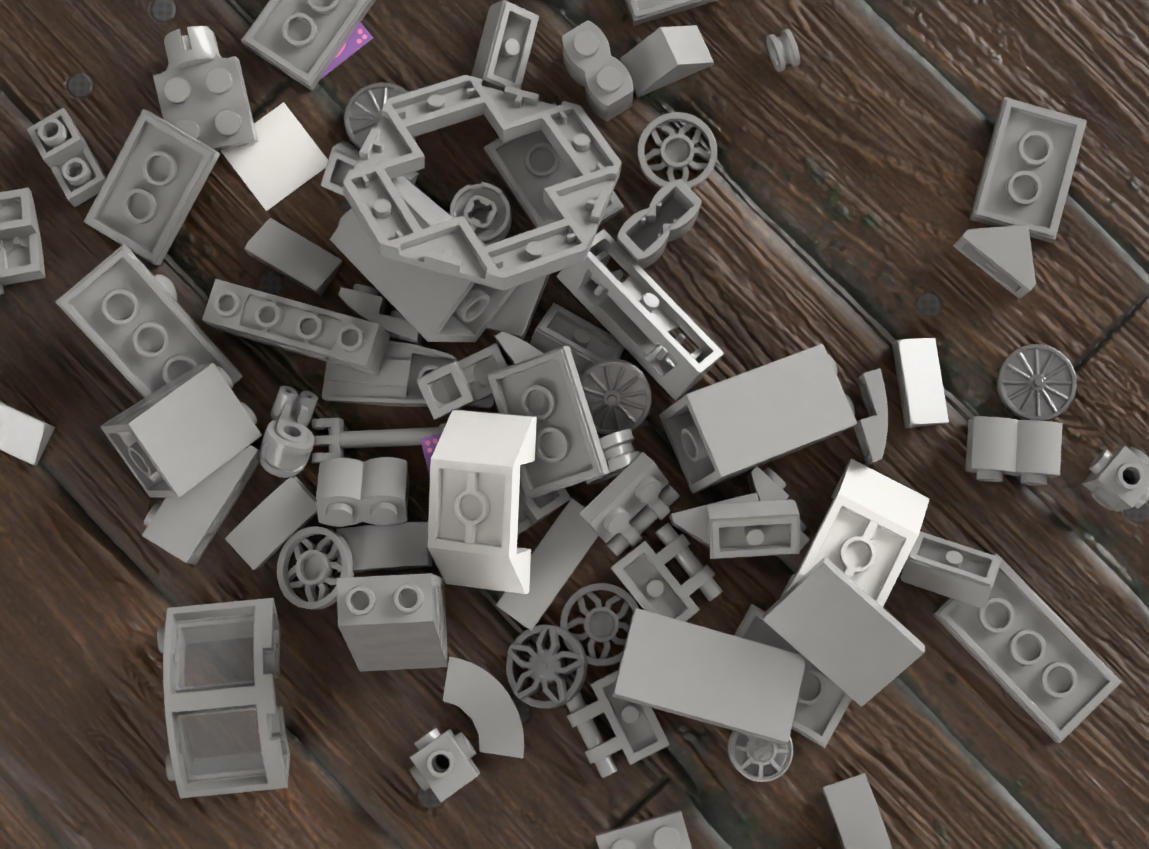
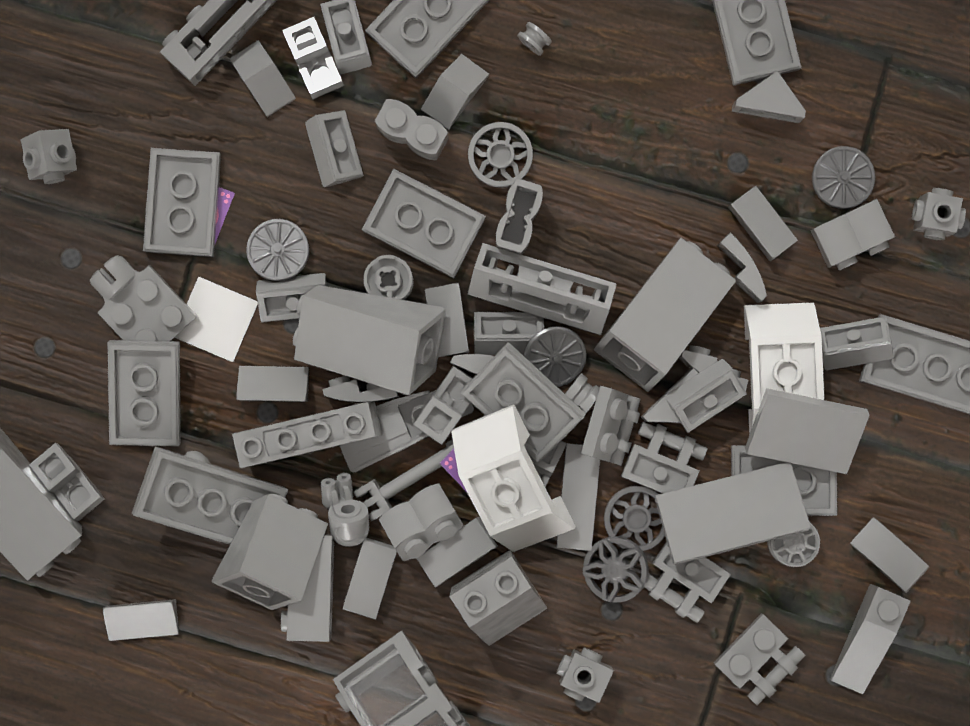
camera: 30 degrees left, 5 degrees up
(68, 156) = (70, 404): light grey slope -> none
(313, 567) = (417, 593): light grey wheel -> none
(453, 245) = (391, 322): light grey plate -> none
(487, 705) = (590, 618): light grey tile -> none

